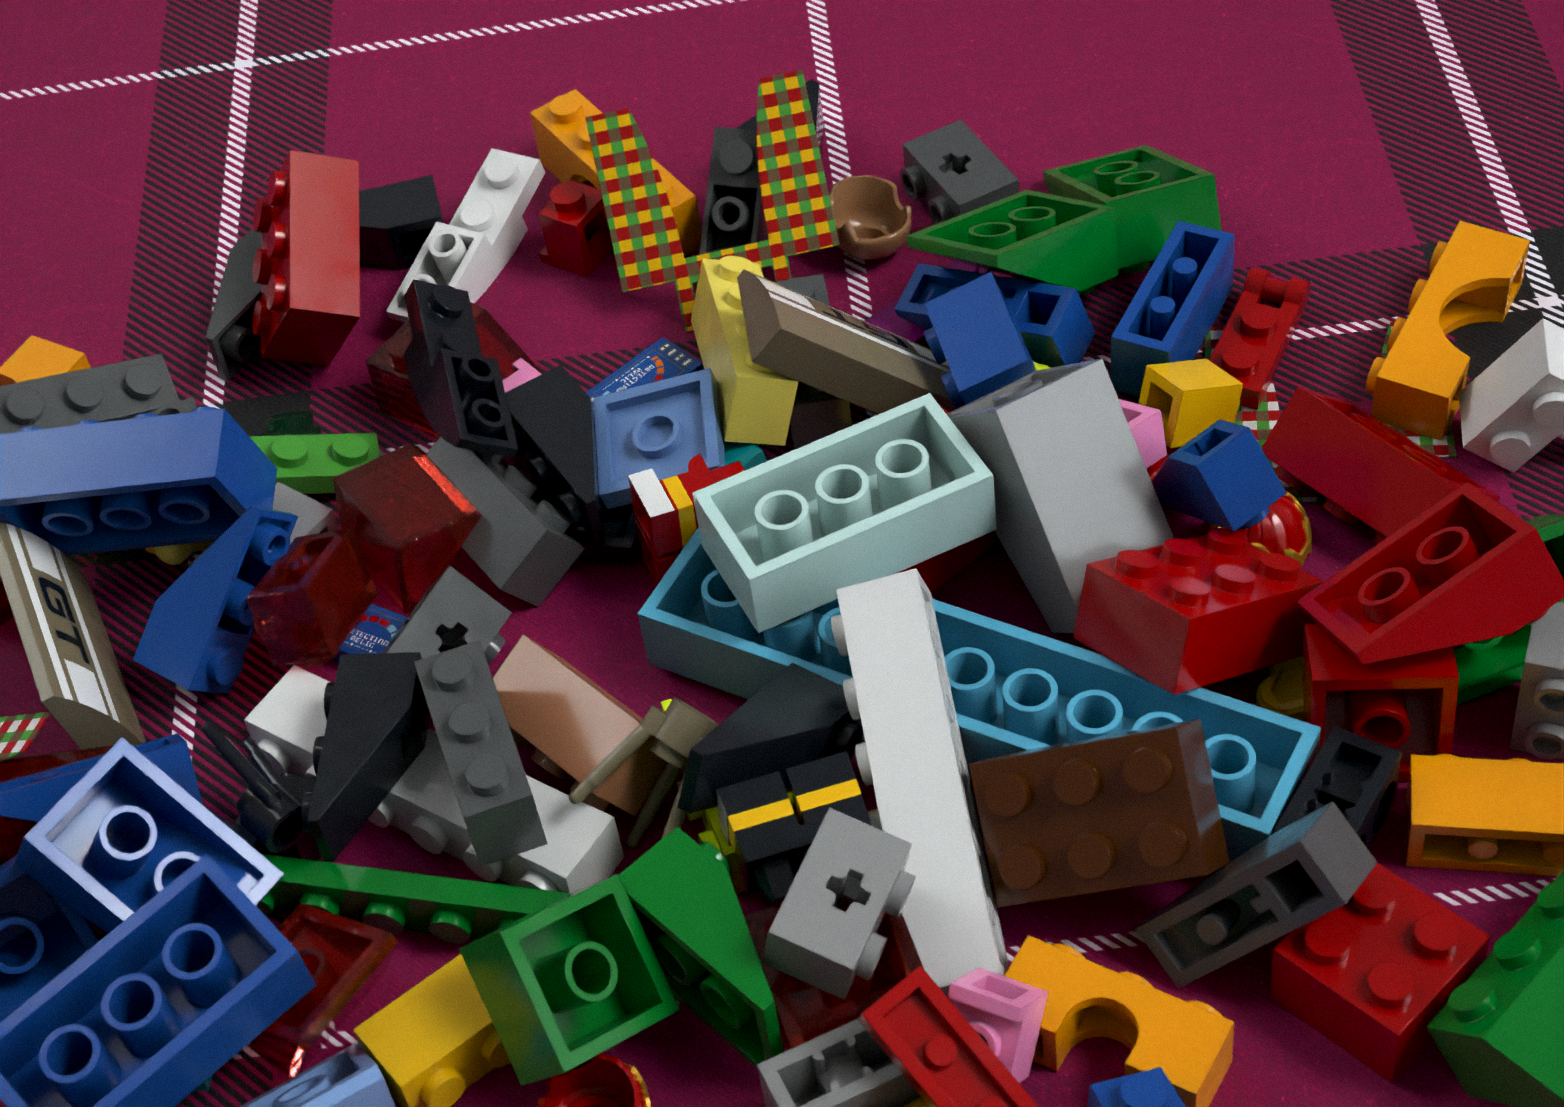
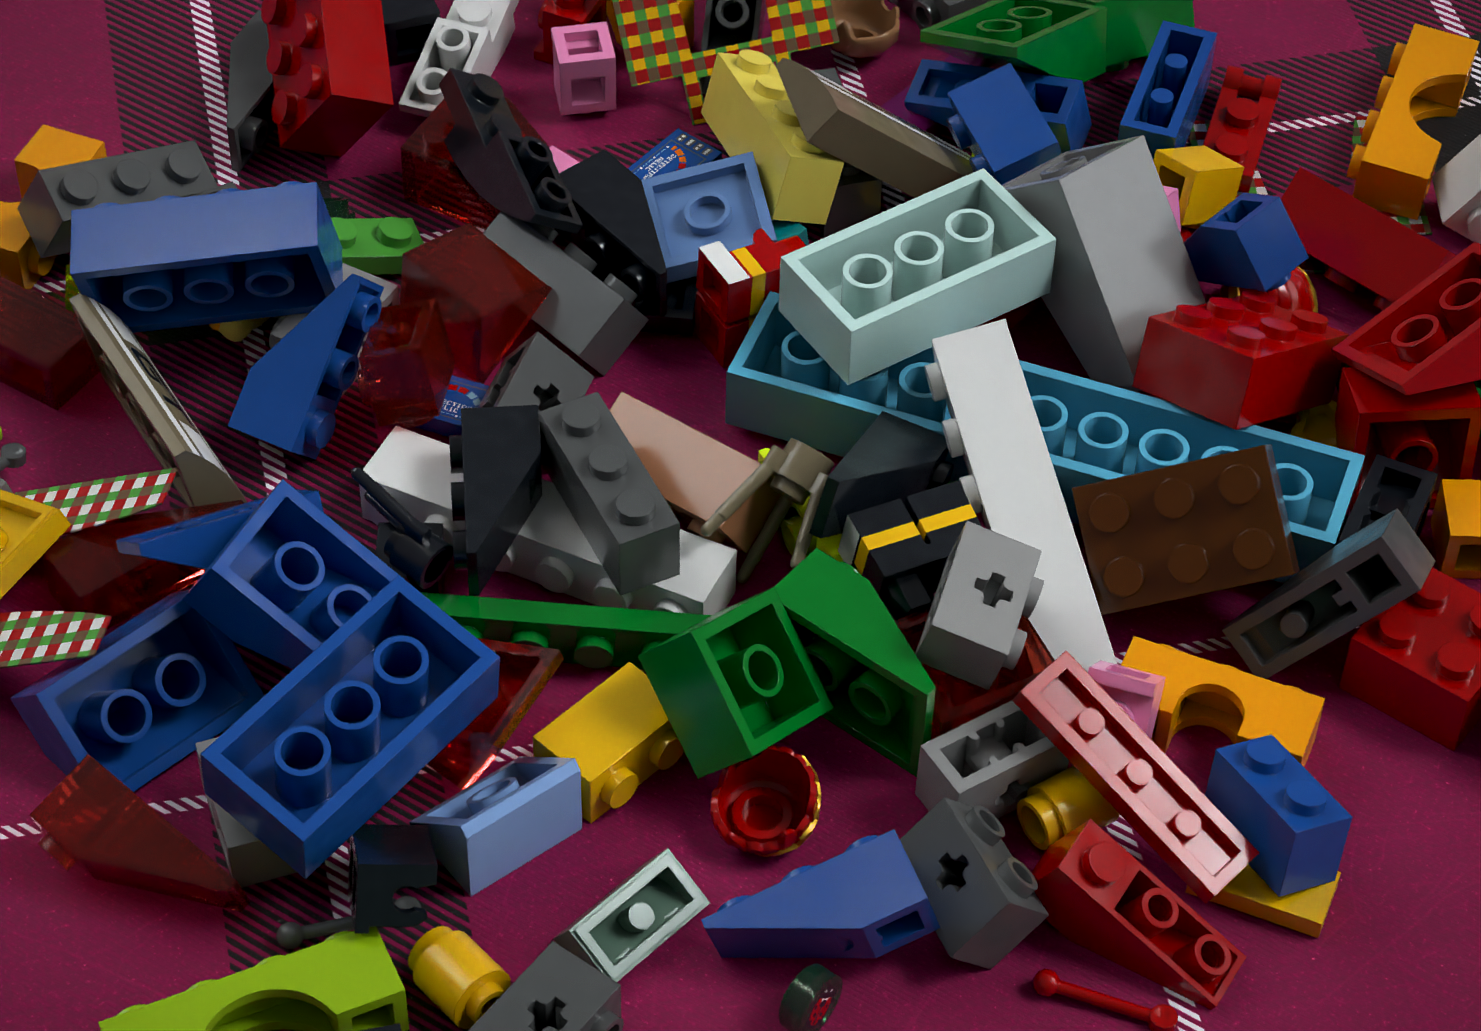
camera: 15 degrees left, 0 degrees up
(573, 274) = (584, 68): none -> bright pink brick

